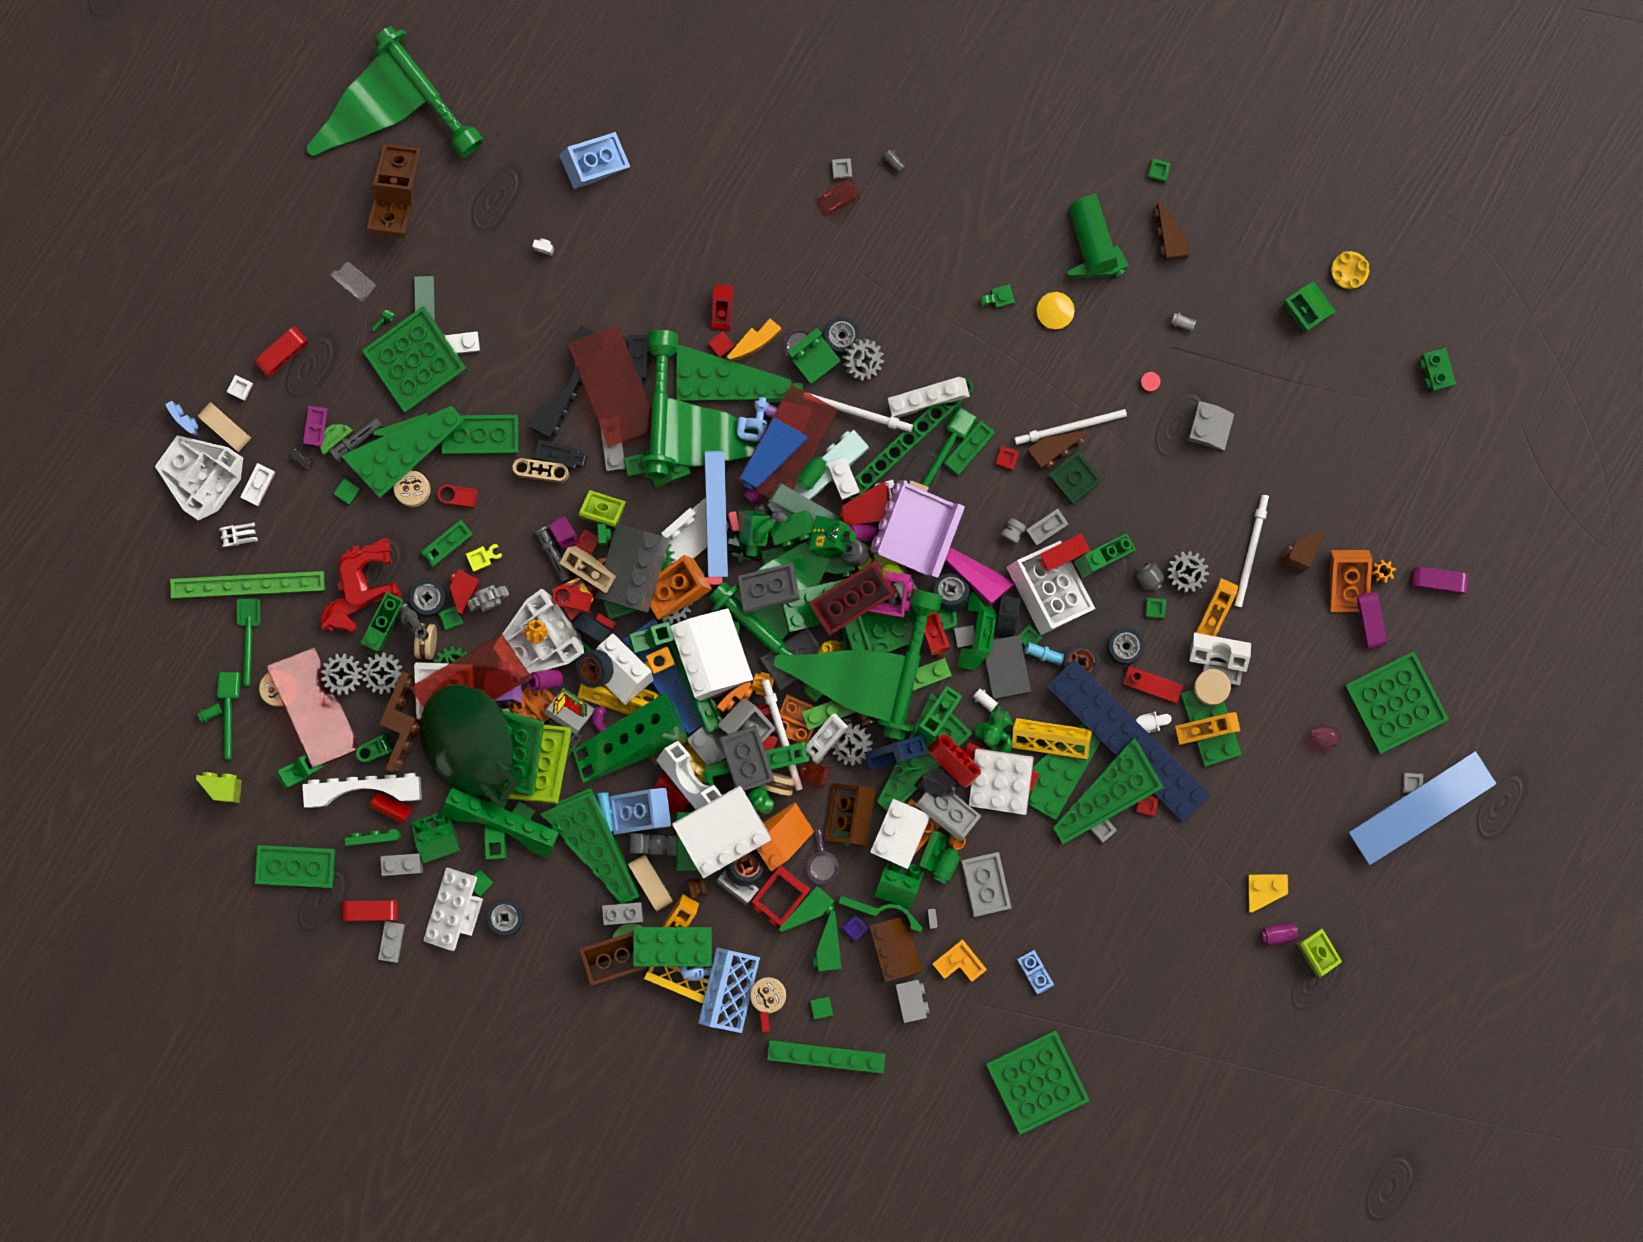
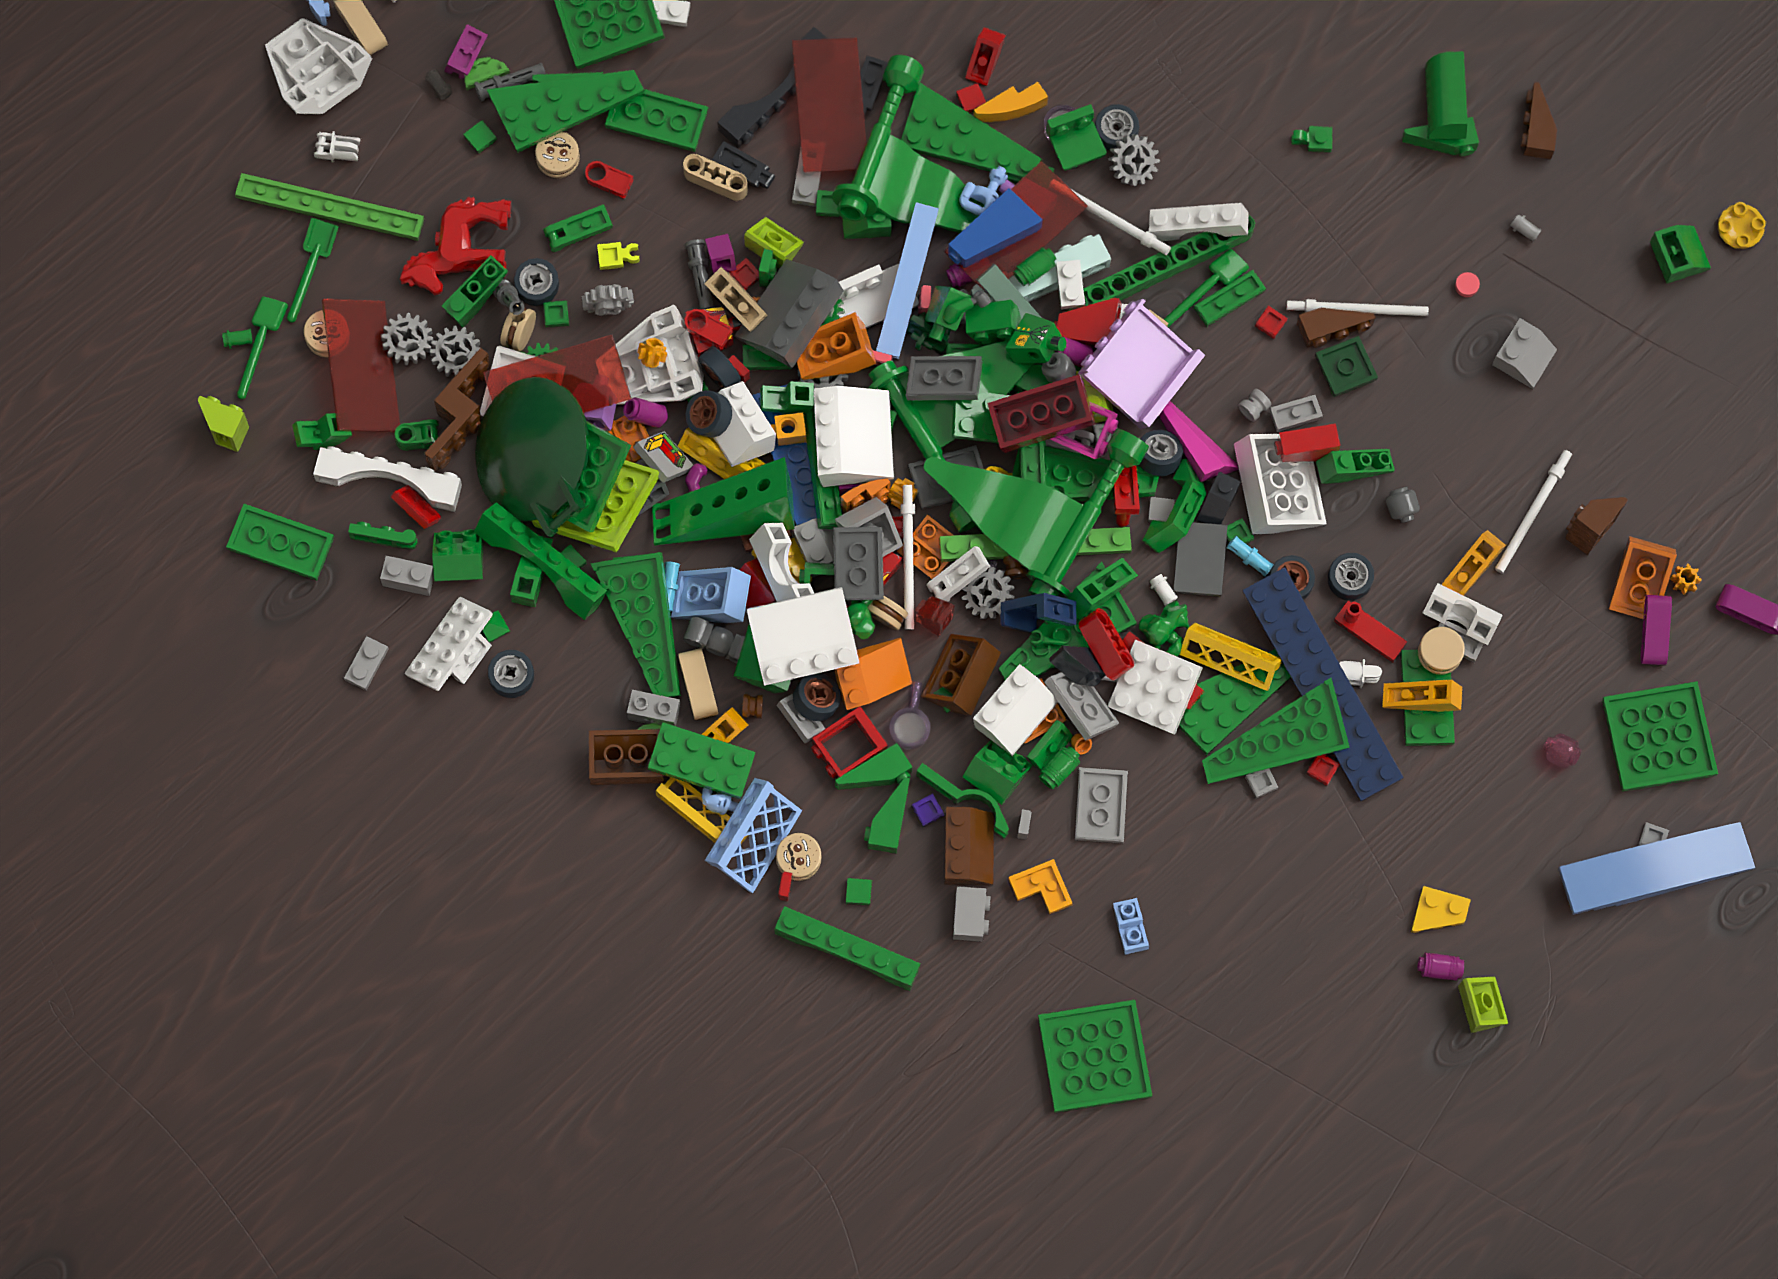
camera: 10 degrees right, 10 degrees down
(258, 484) = (378, 98): white plate -> none
(369, 910) = (352, 618): red beam -> none
(463, 589) = (581, 279): red slope -> none
(785, 756) = (904, 580): green plate -> none
(1055, 310) = (1377, 172): yellow dish -> none
(1155, 608) = (1399, 544): green tile -> none
(1159, 170) = (1545, 51): green tile -> none
(1200, 568) = (1439, 512): light grey gear -> none

